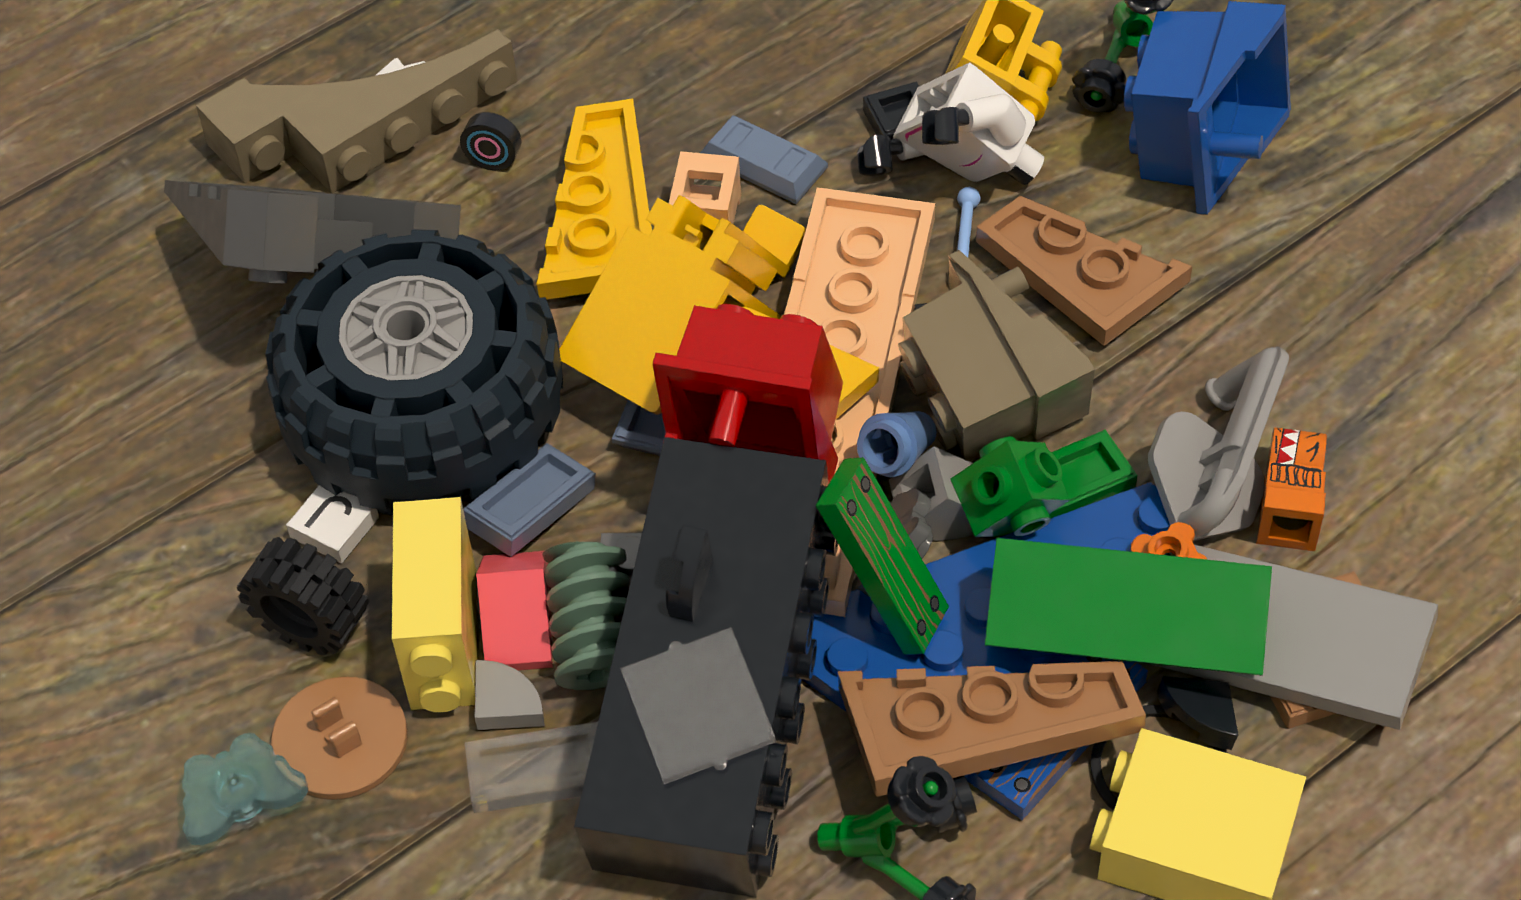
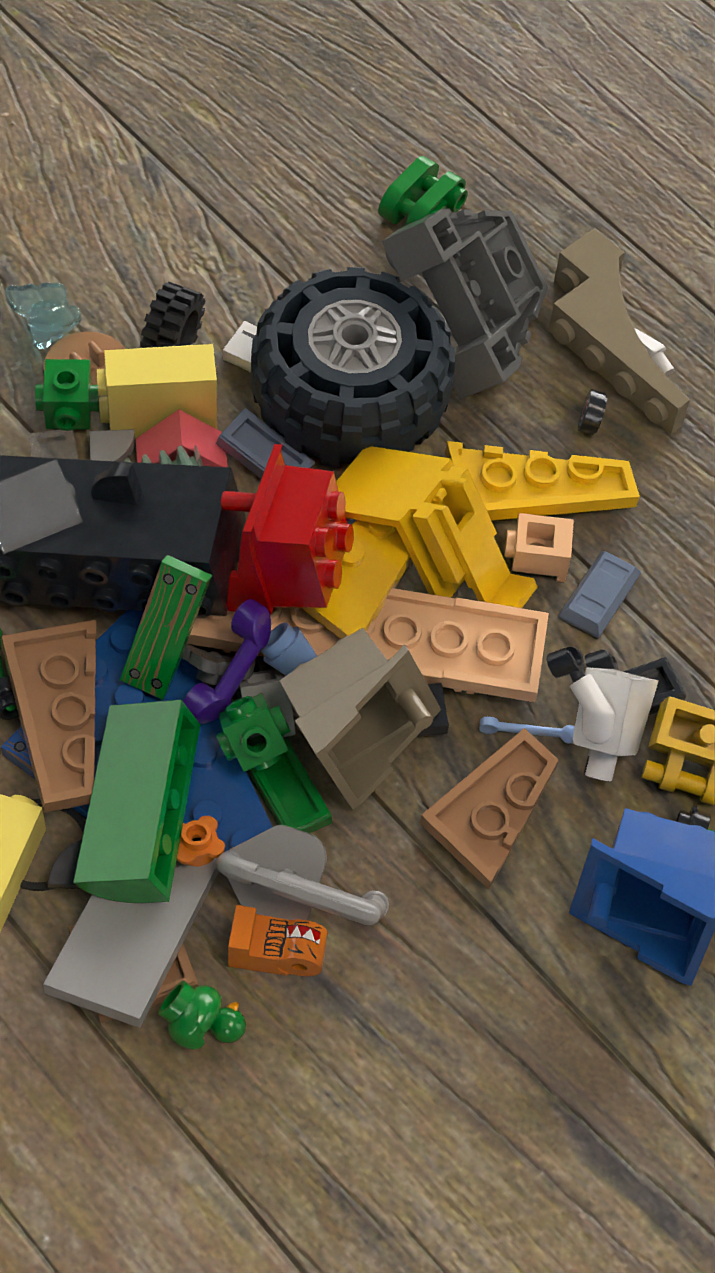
camera: 80 degrees right, 5 degrees up
(89, 306) = (421, 193): none -> green brick
(416, 737) = (67, 394): none -> green brick
(965, 542) = (253, 625): none -> dark purple bar
(1405, 561) = (195, 1011): none -> green animal

